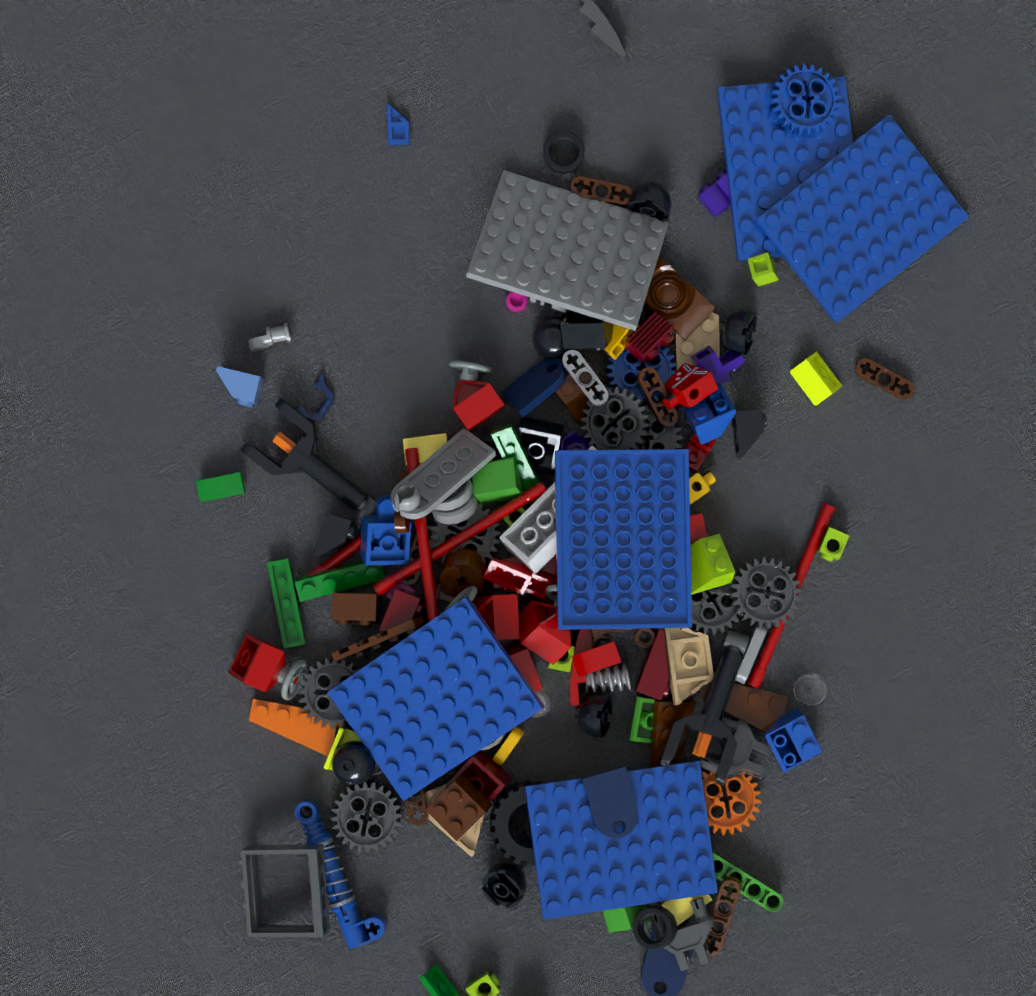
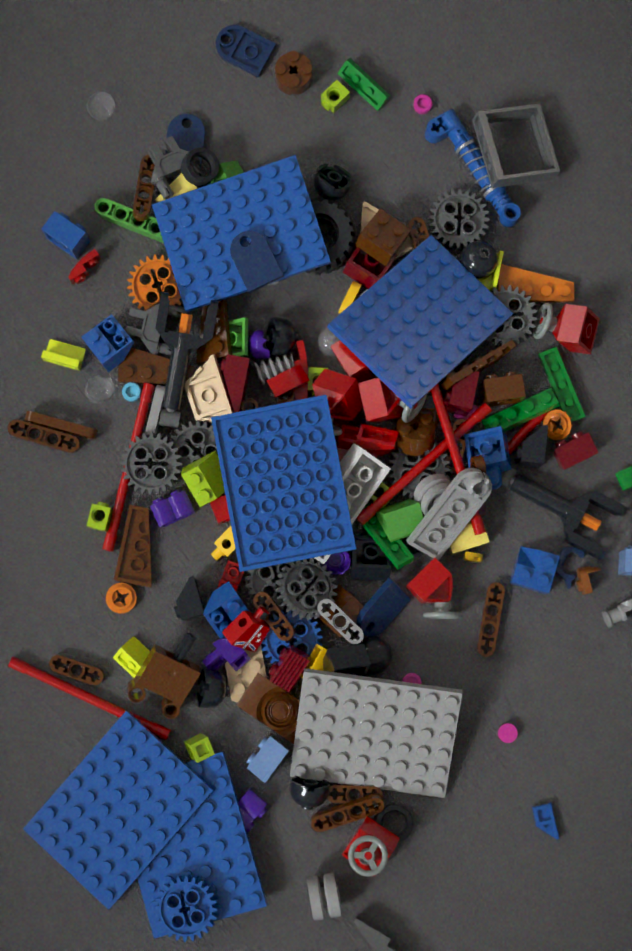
camera: 170 degrees right, 5 degrees down
(287, 526) = (574, 450): none -> dark red brick
(305, 376) = (583, 582): none -> dark orange plate
(308, 560) = (559, 433): none -> orange gear
(357, 400) = (534, 570): none -> blue slope
(382, 963) = (422, 104): none -> dark pink tile
(413, 353) = (488, 619): none -> reddish brown beam
(421, 227) = (507, 733): none -> dark pink tile
(424, 427) = (473, 557): none -> yellow tile
(596, 127) = (370, 848): none -> piece
(612, 169) = (349, 816): none -> reddish brown beam
(623, 708) = (256, 347): none -> dark purple hair
(654, 86) = (324, 896): none -> light grey wheel
(690, 244) = (267, 758): none -> medium blue slope
(750, 539) = (172, 509): none -> dark purple brick
(774, 681) = (131, 392): none -> medium azure tile
(786, 352) = (167, 676): none -> reddish brown piece
(799, 496) = (135, 549): none -> reddish brown wing
(811, 831) = (79, 272): none -> red slope
(822, 875) = (65, 234): none -> blue brick
(826, 440) = (112, 595): none -> orange gear
(844, 738) = (64, 354): none -> neon yellow panel
(860, 656) = (61, 425): none -> reddish brown beam
(882, 645) = (44, 434): none -> reddish brown beam
(940, 390) = (25, 668): none -> red piece

